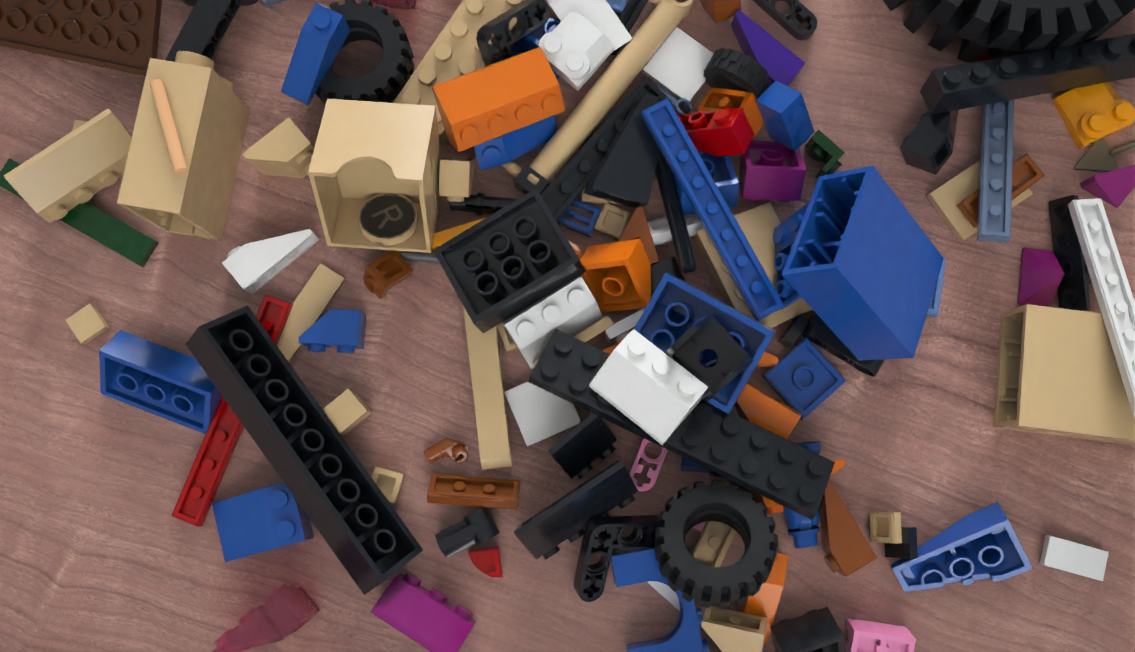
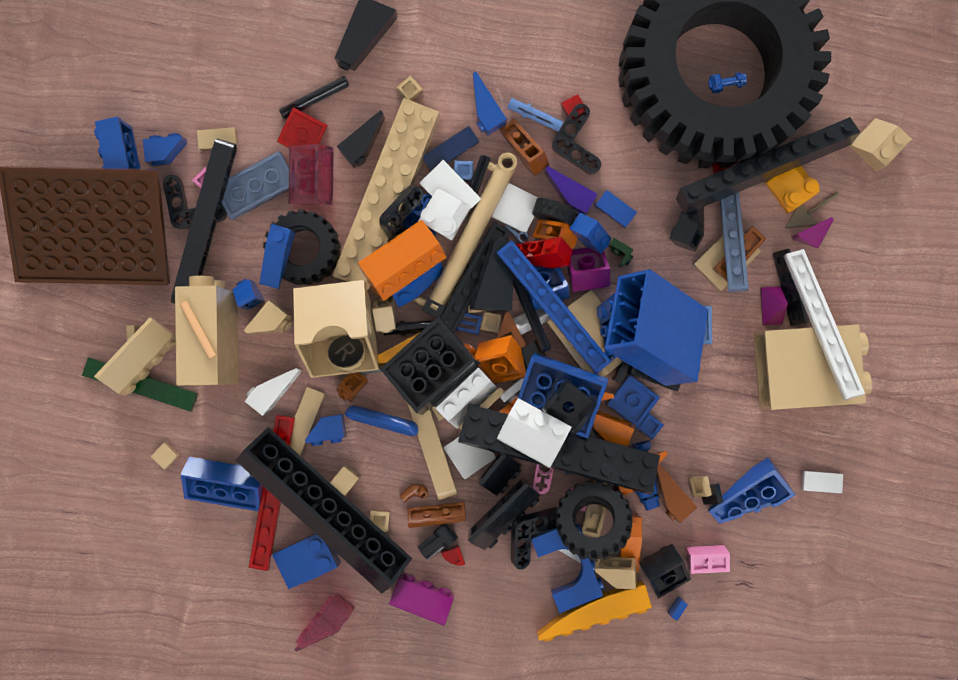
camera: 10 degrees left, 5 degrees up
(261, 111) = (247, 294): none -> blue slope
(421, 332) = (382, 420): none -> blue piece
(823, 421) = (650, 426): none -> blue tile
(826, 93) = (615, 209): none -> blue tile

